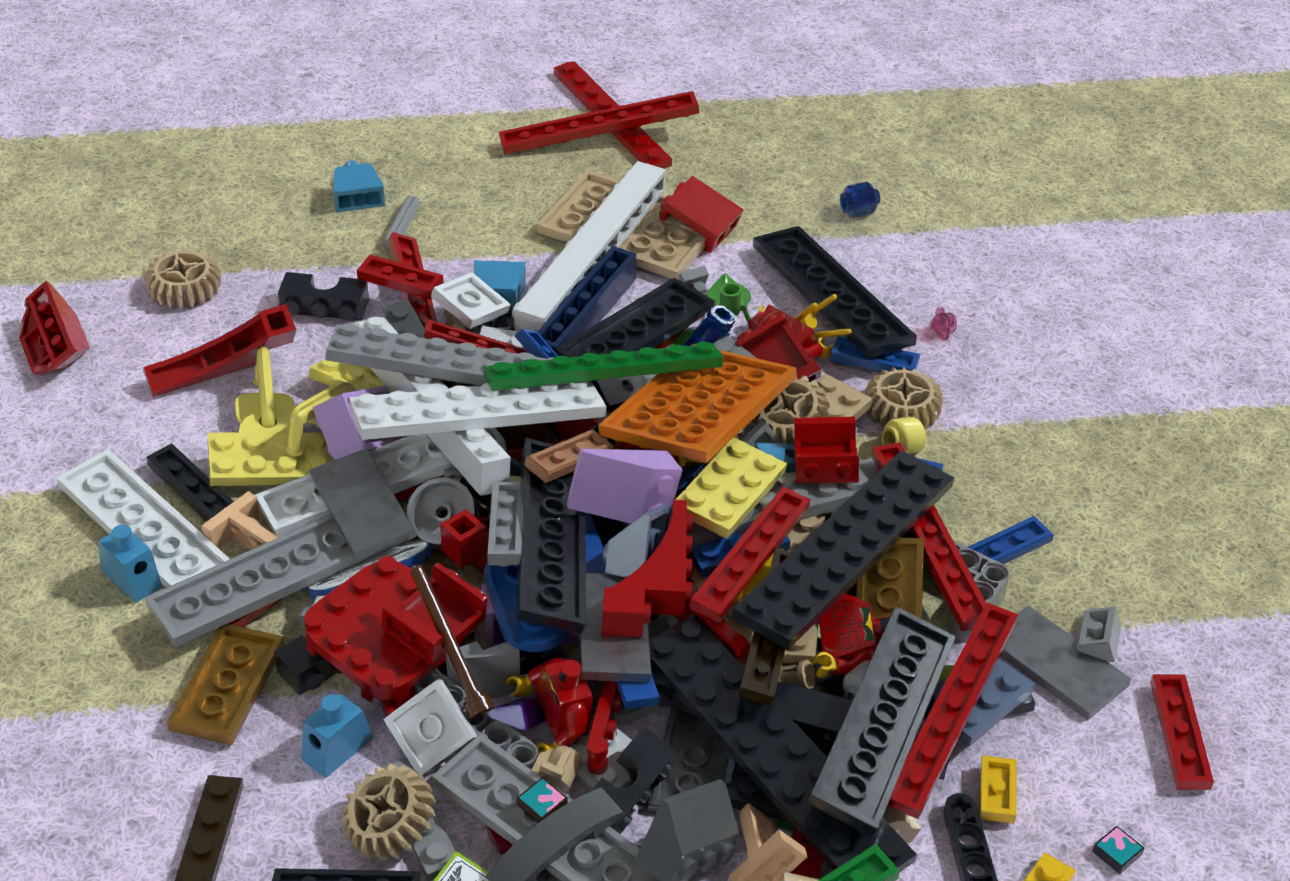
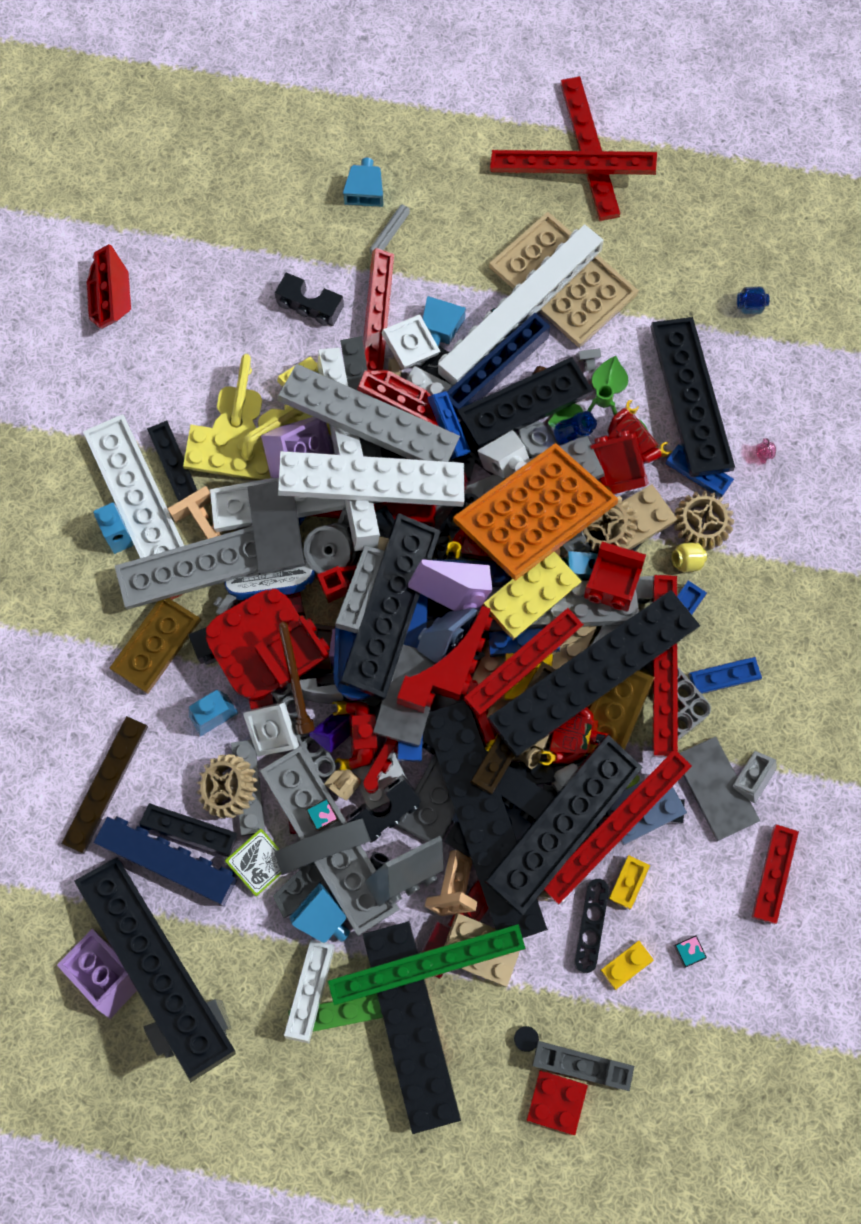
camera: 20 degrees right, 30 degrees up
(183, 278) = (223, 259): tan gear -> none
(224, 354) = (217, 346): red arch -> none
(399, 276) = (365, 303): red plate -> none
(562, 457) = (424, 538): nougat tile -> none
(604, 366) = (475, 462): green plate -> none
(702, 211) = (619, 285): red panel -> none
(808, 318) = (658, 425): yellow plant -> none

